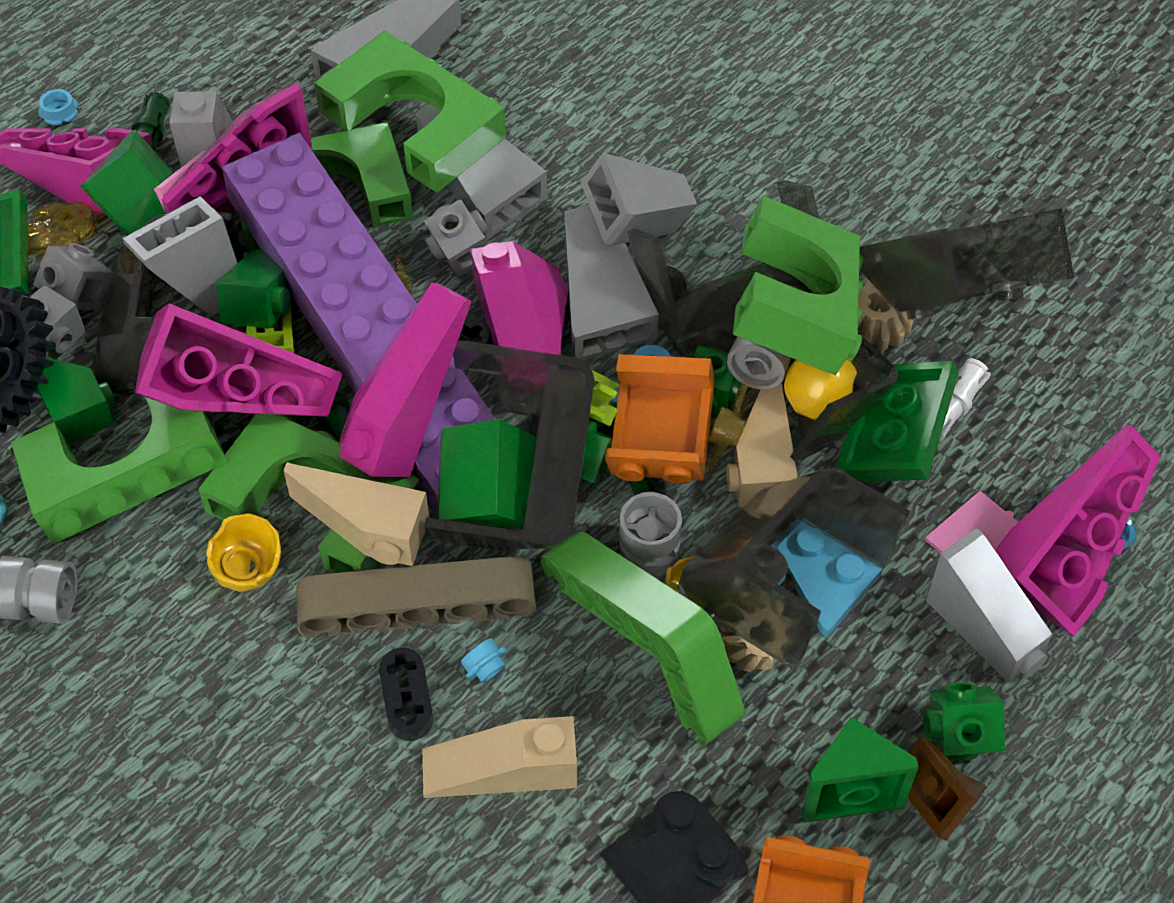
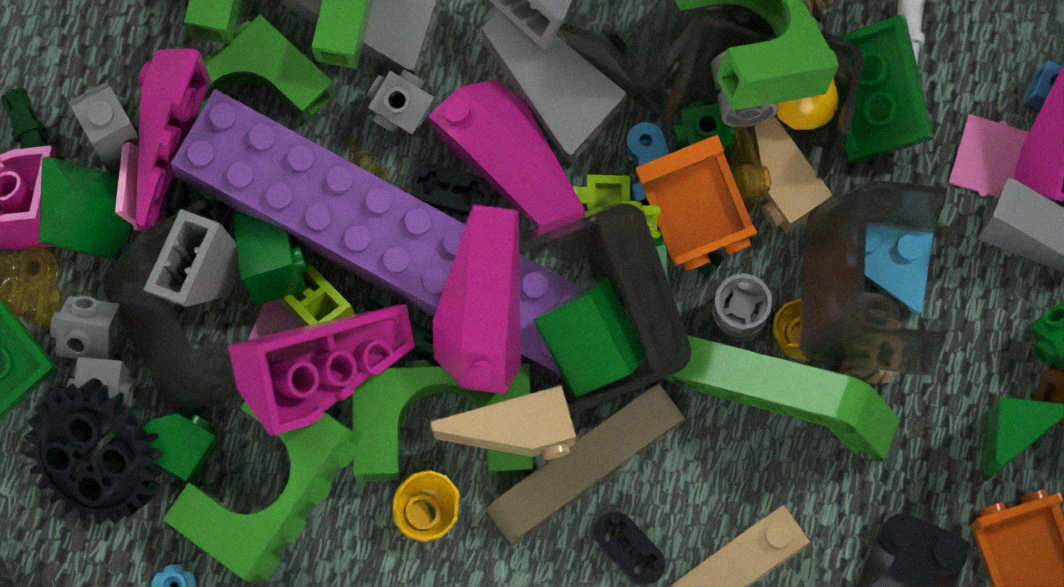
camera: 30 degrees left, 20 degrees up
(484, 661) = (673, 488): medium azure plate -> none

